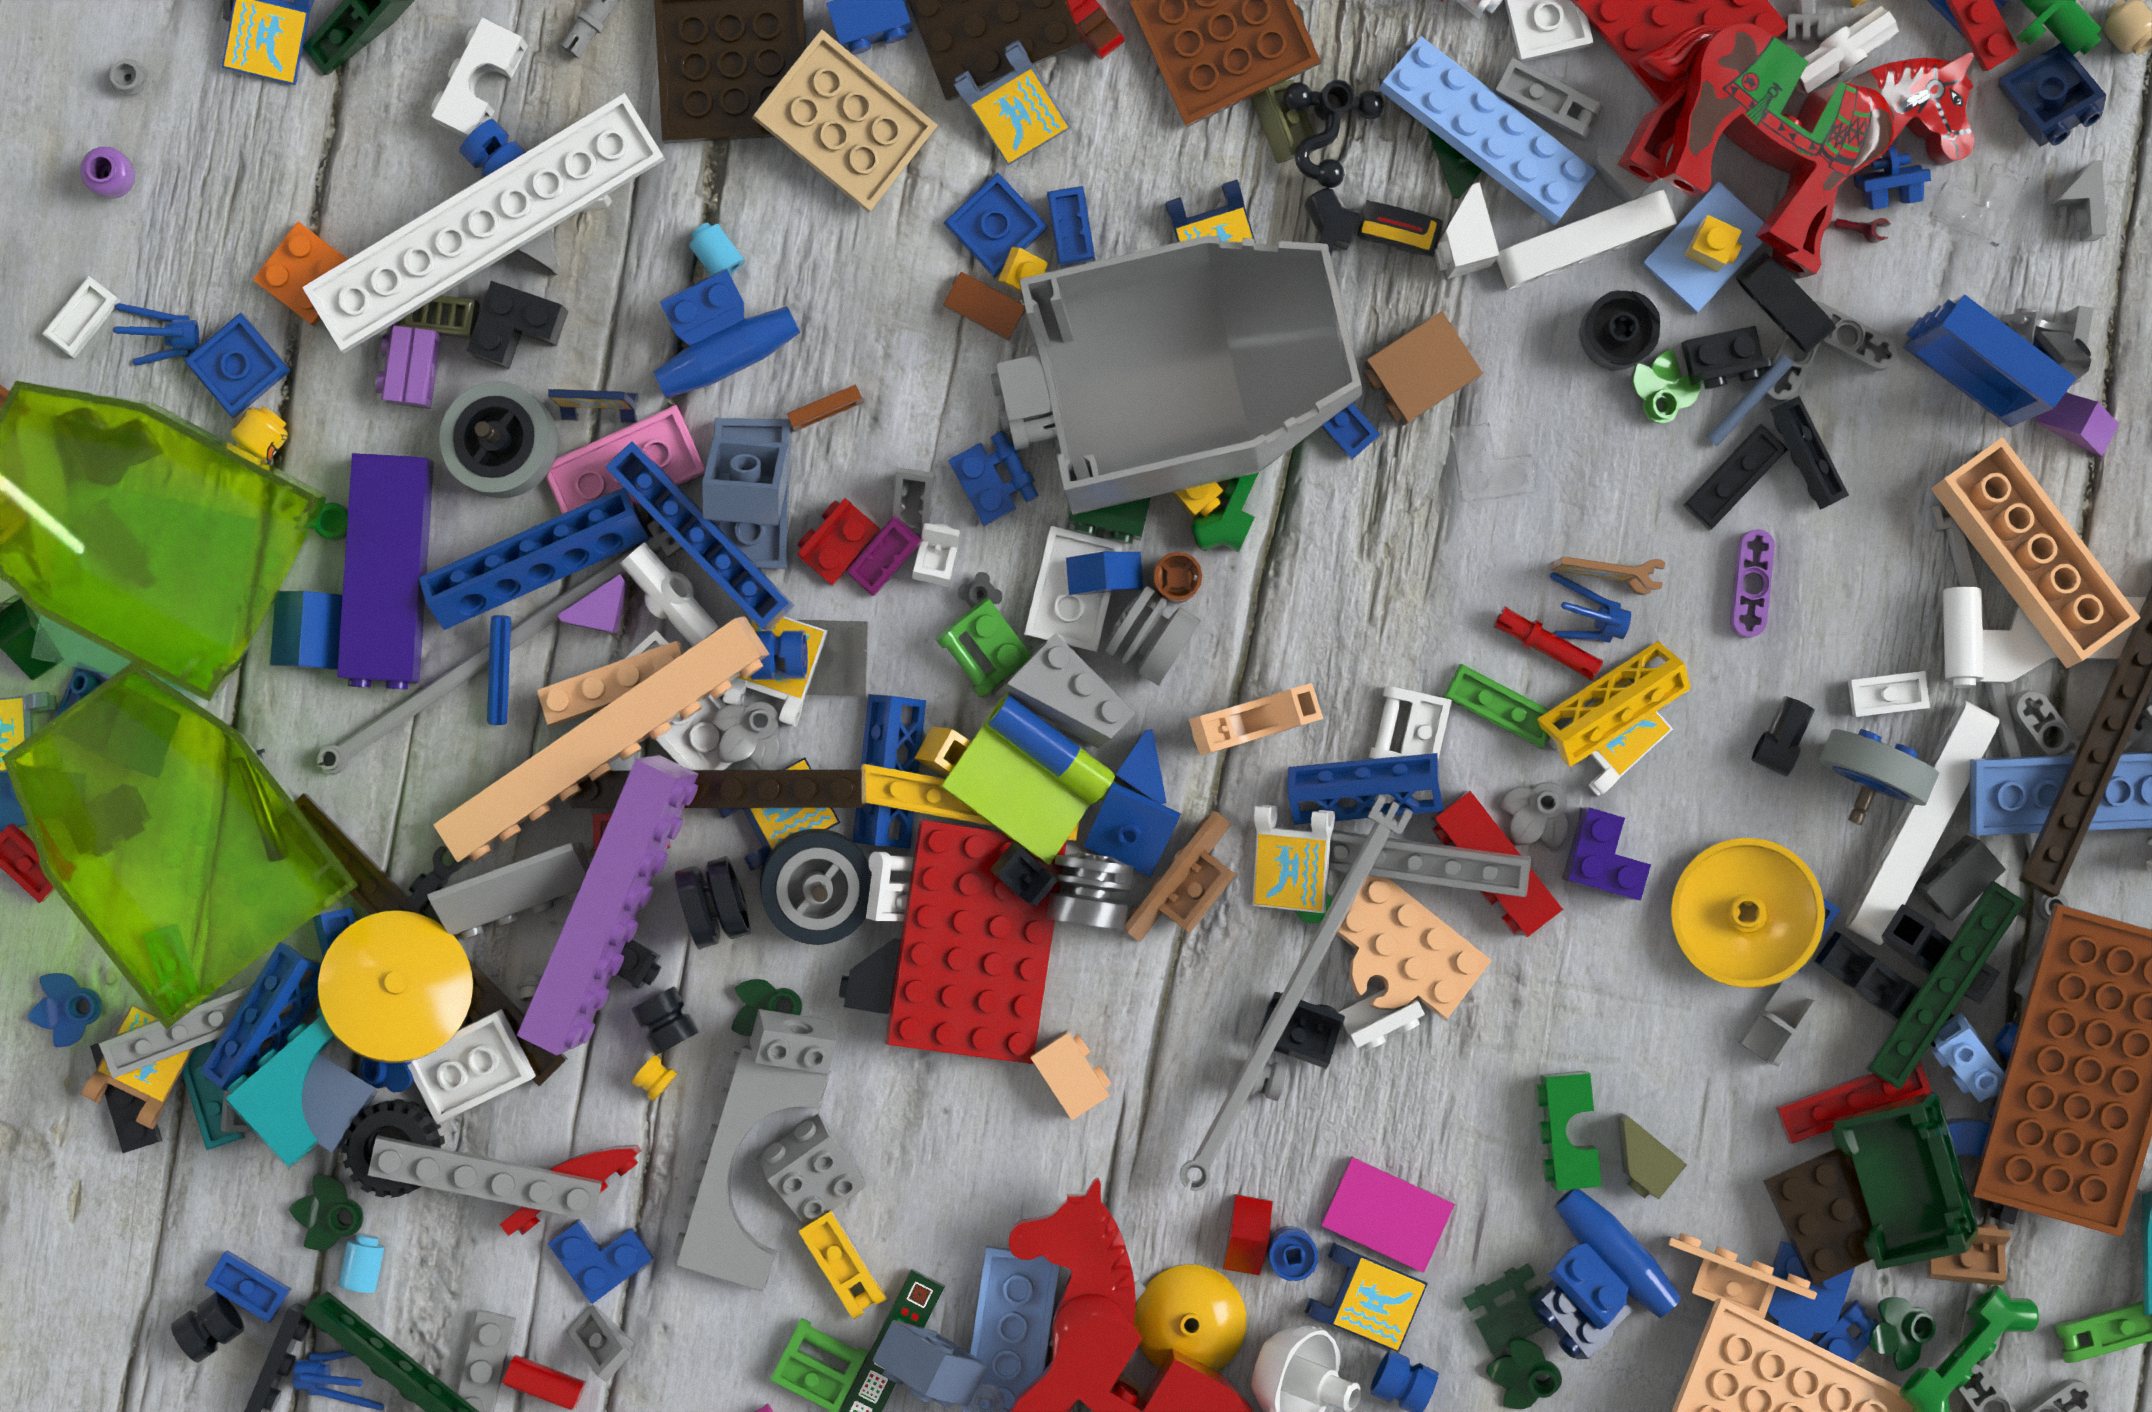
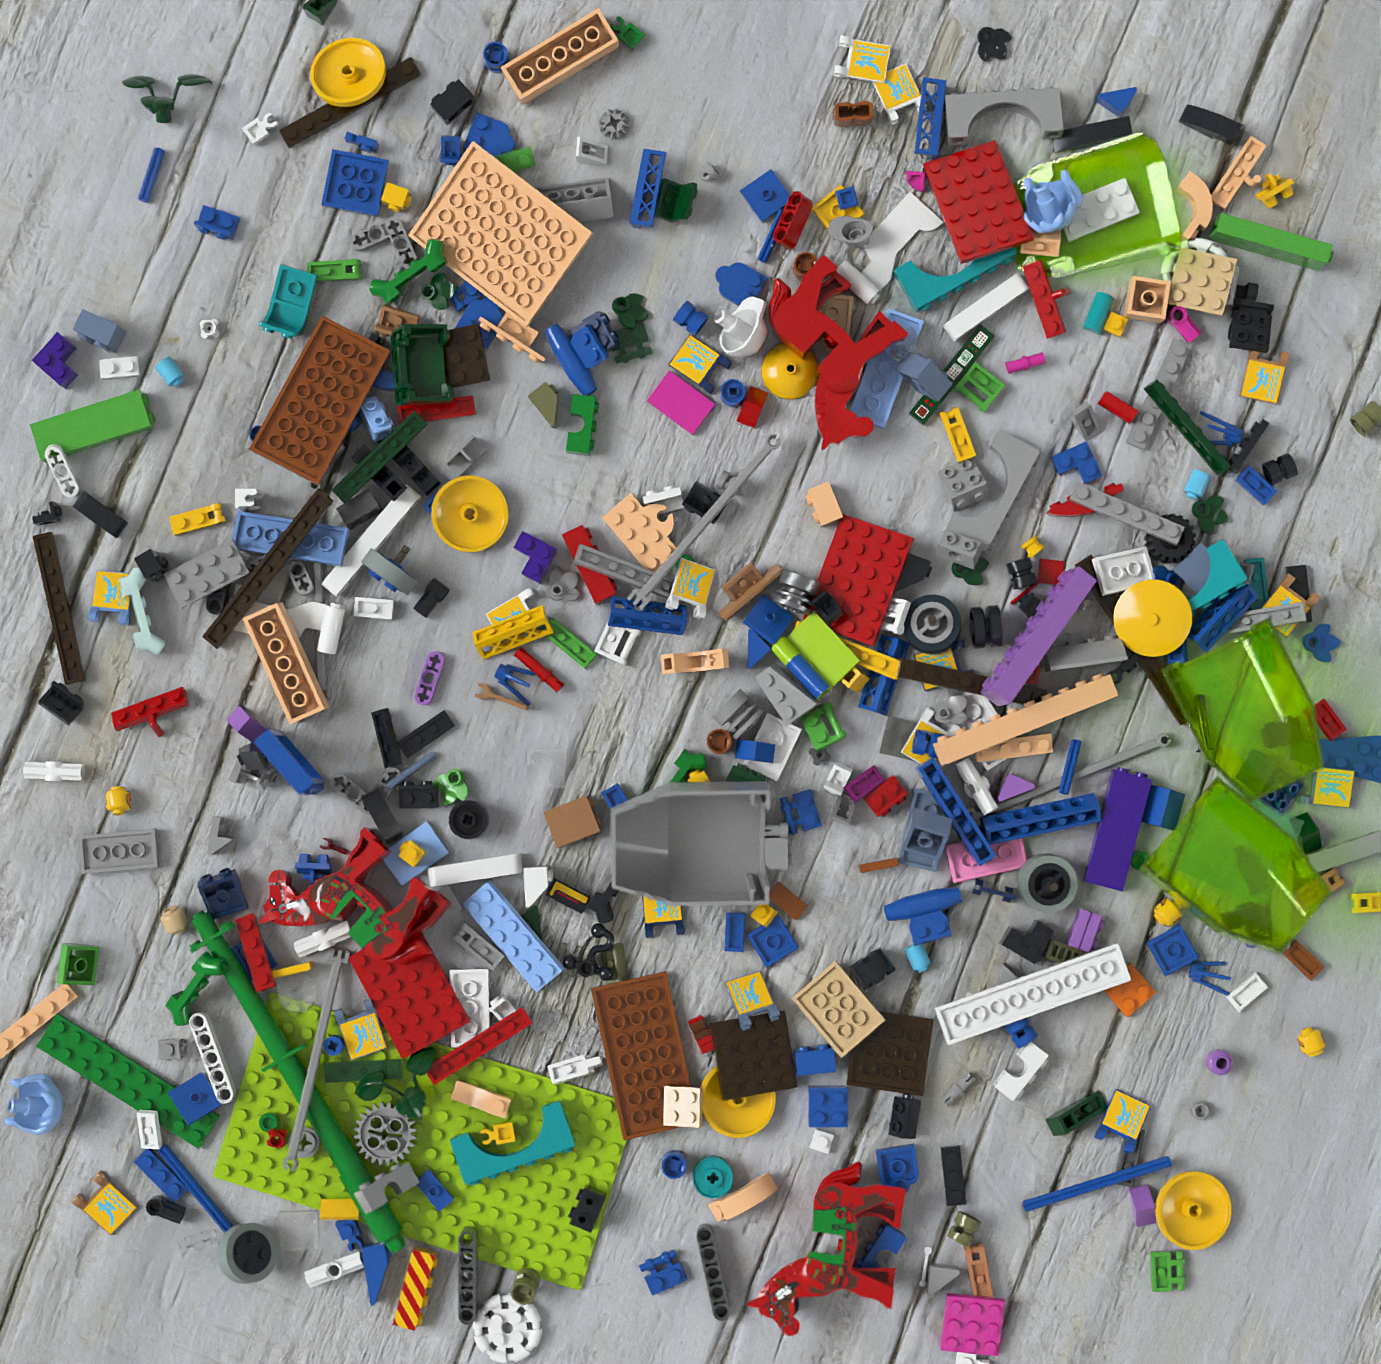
camera: 160 degrees left, 0 degrees up
(614, 1031) = (1048, 574): none -> red piece
(797, 209) = (872, 968): none -> black brick

